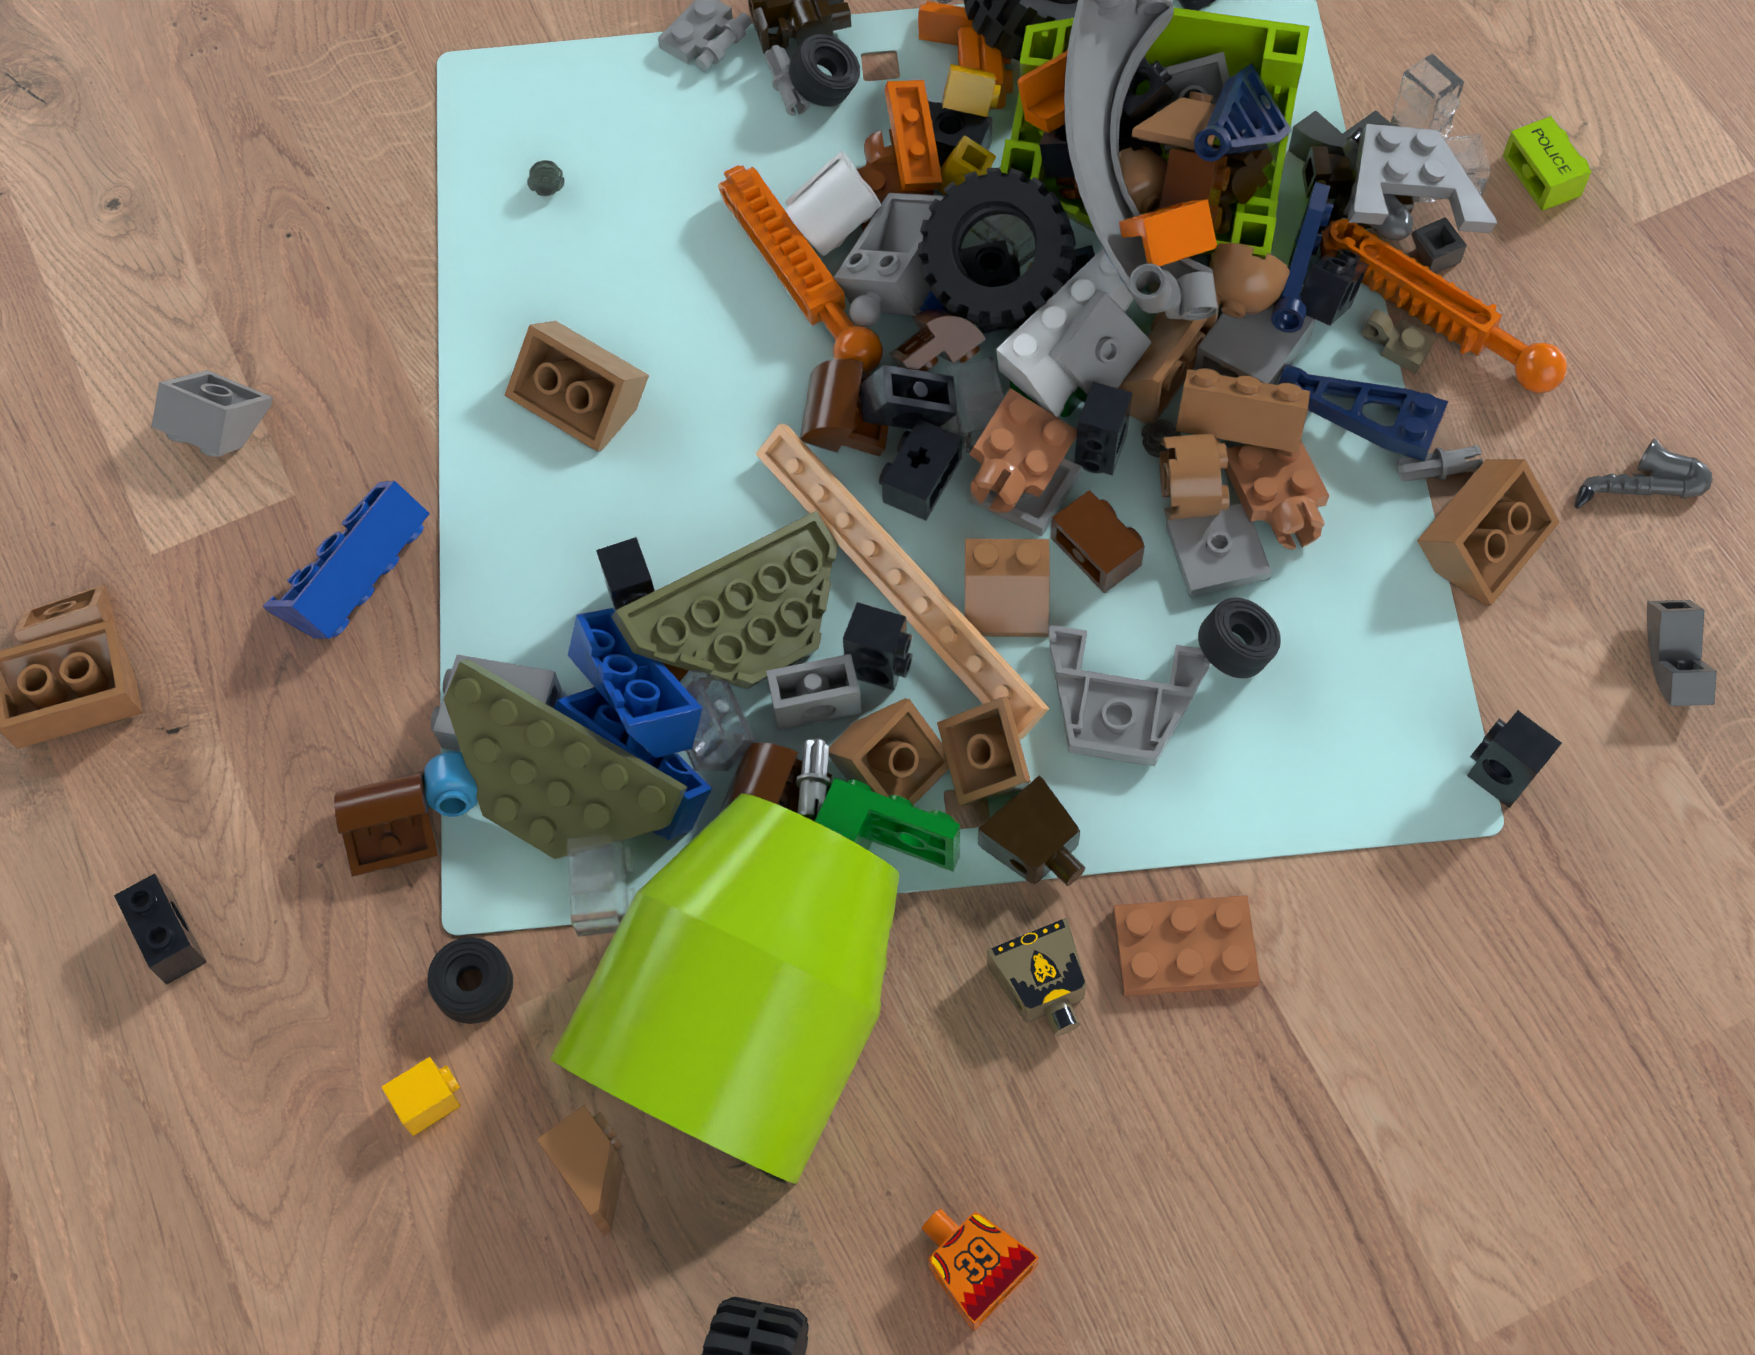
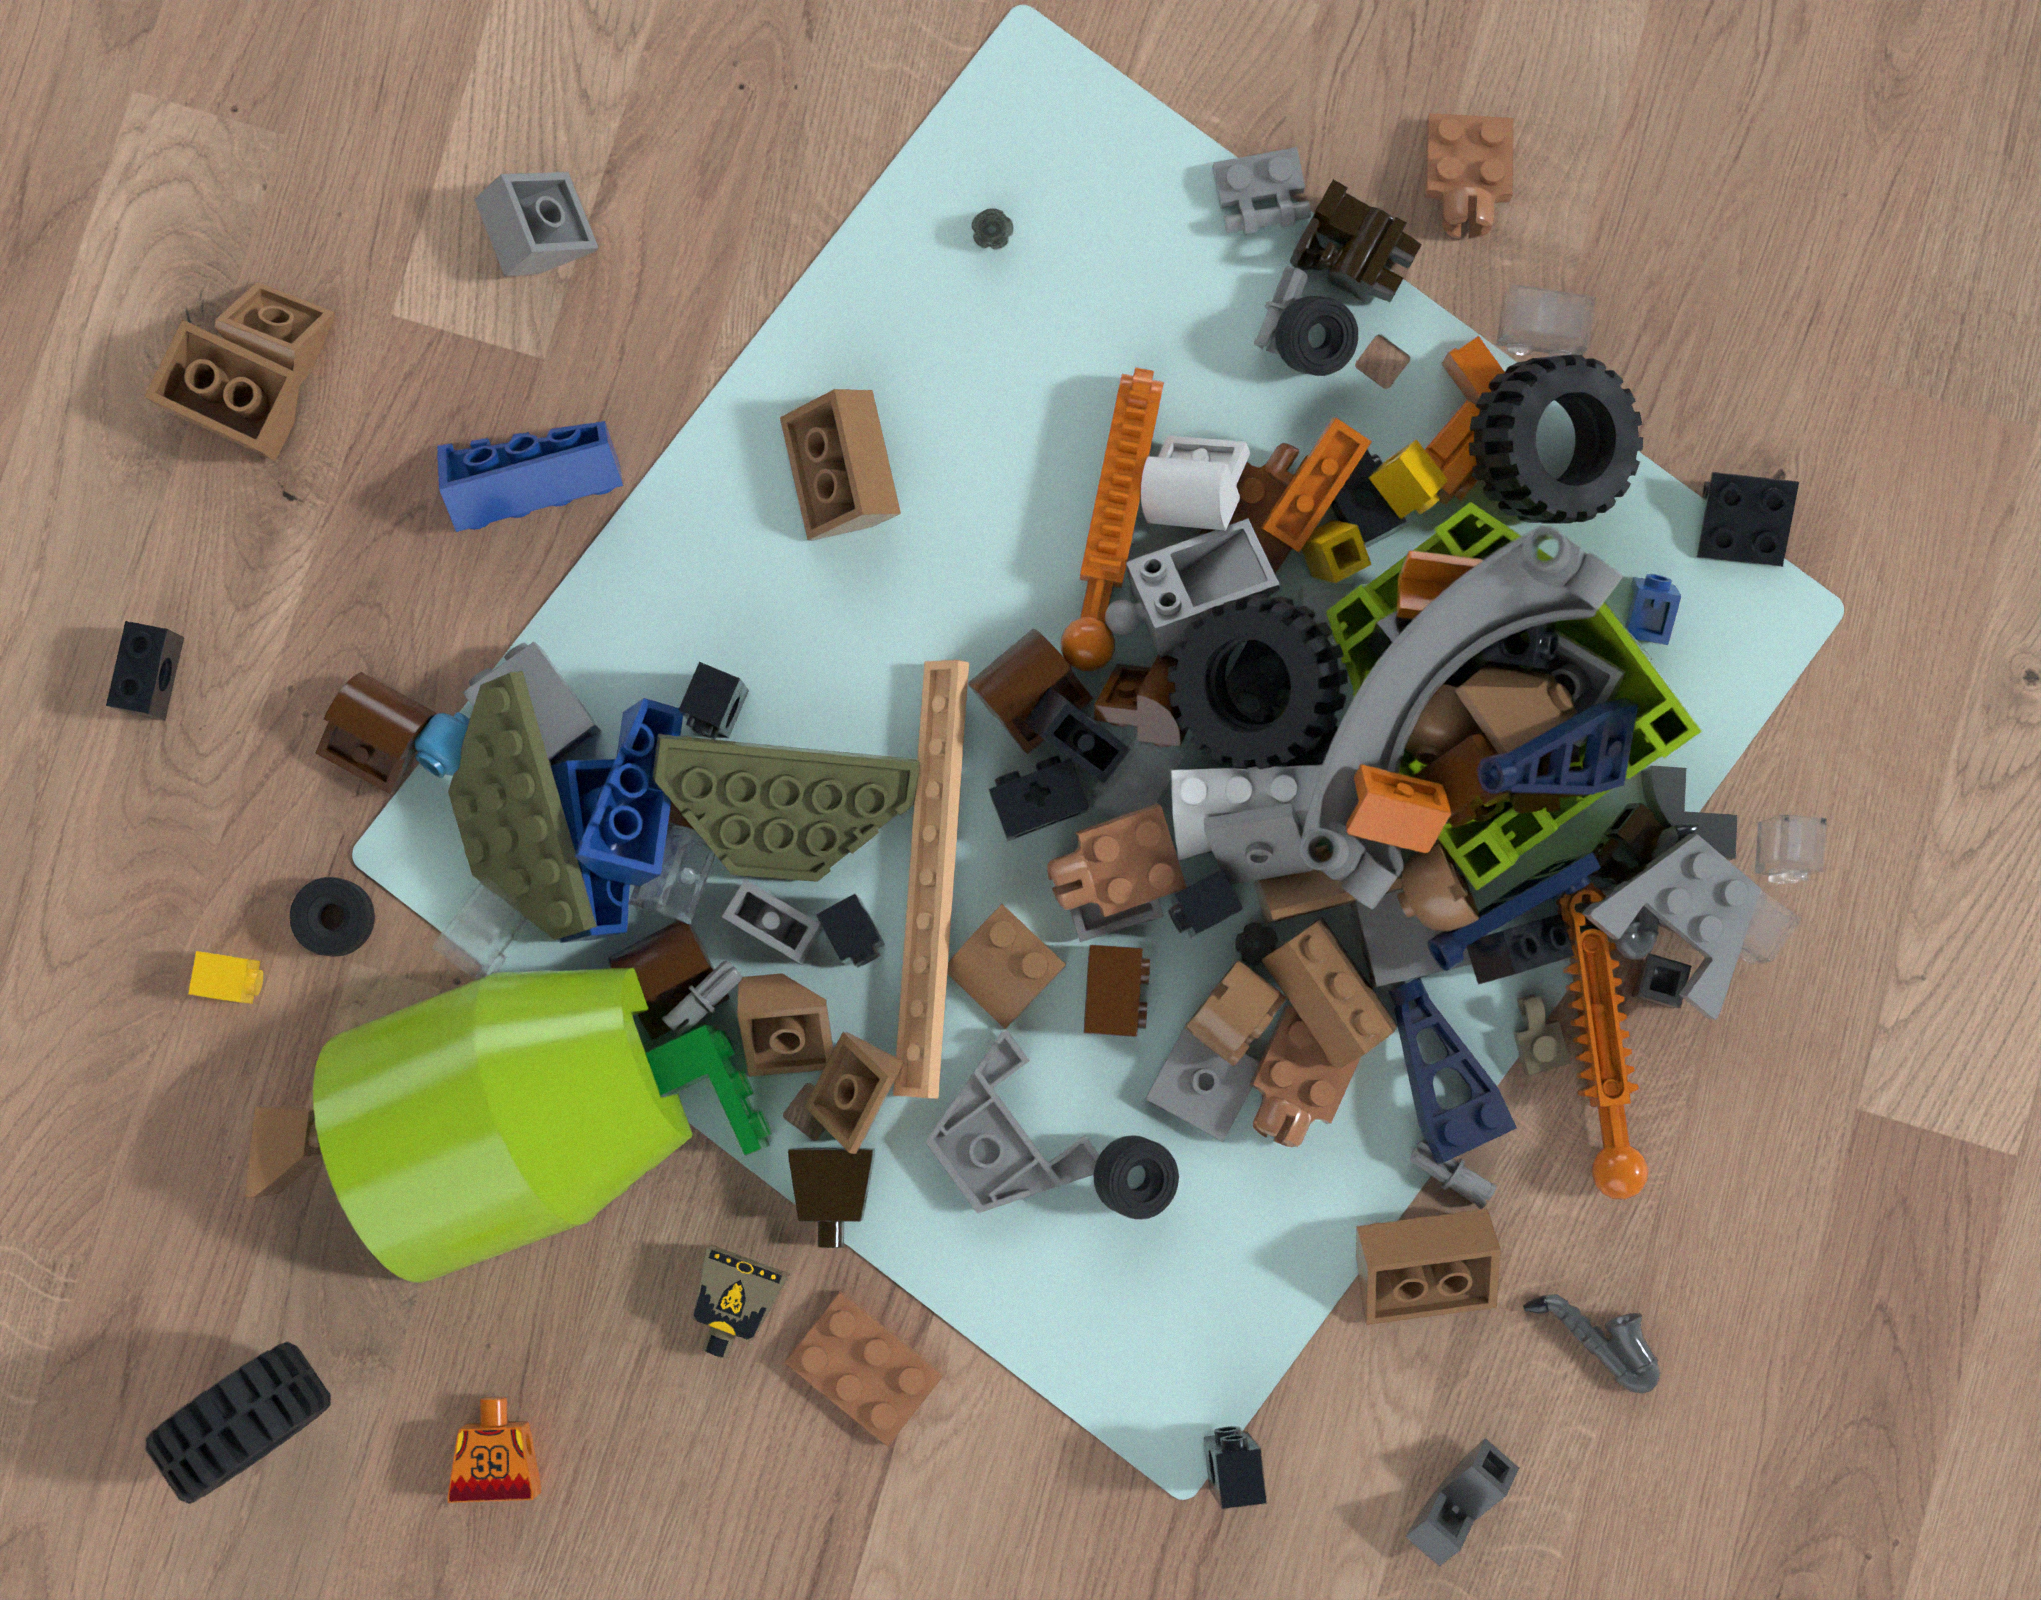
camera: 40 degrees right, 20 degrees up
(1546, 163) = (1838, 991): lime brick -> none

